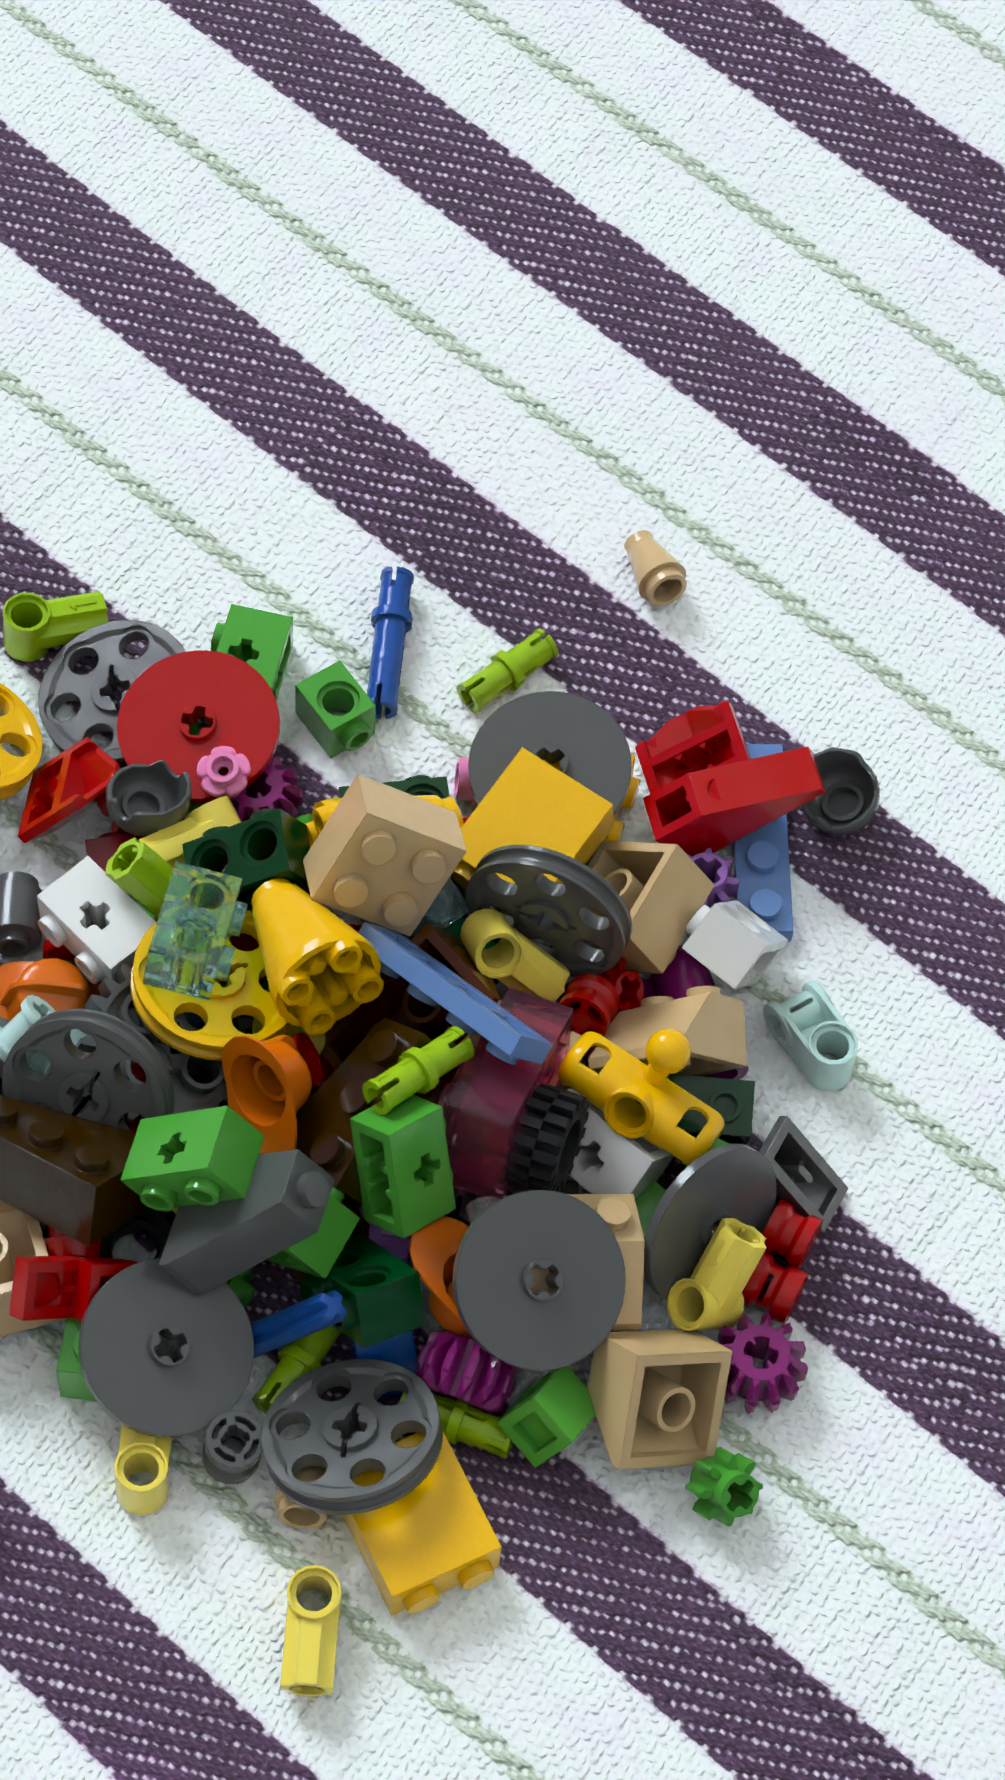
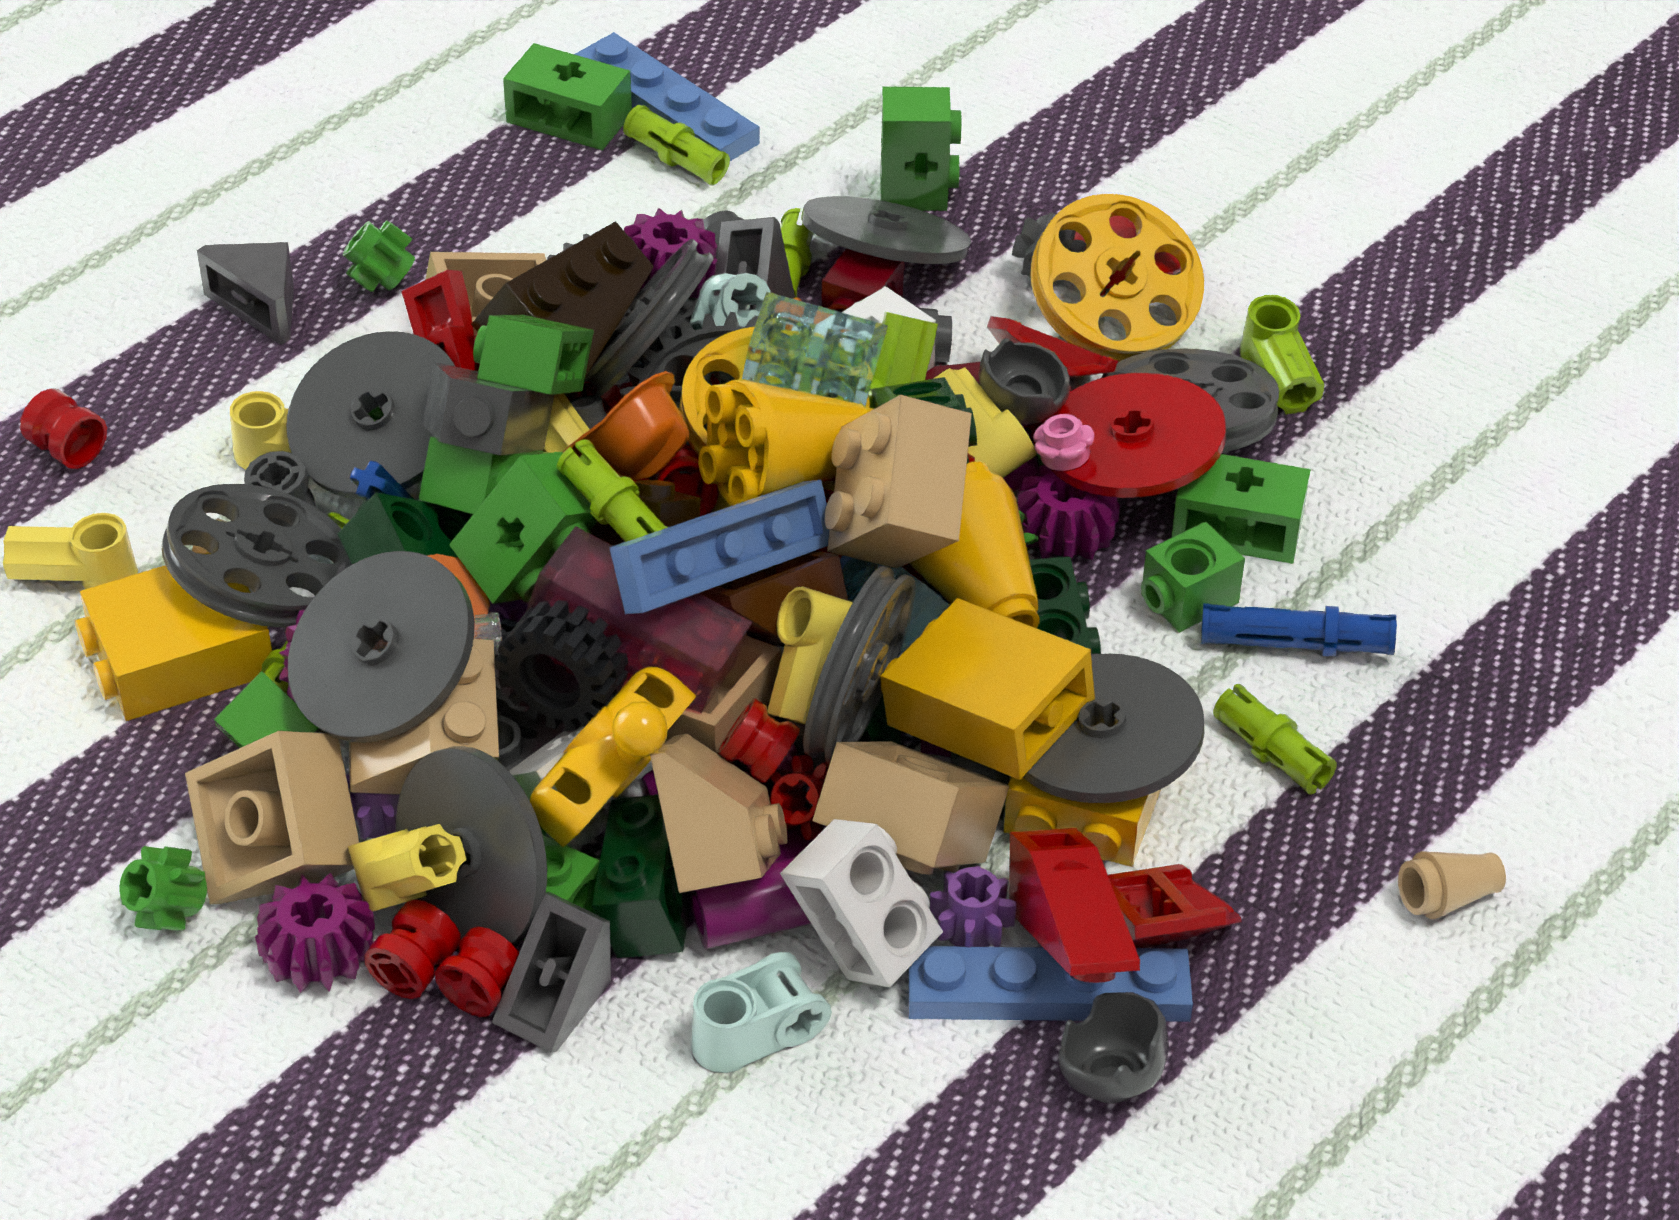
camera: 95 degrees right, 15 degrees down
(127, 1672) = (68, 431): none -> red wheel

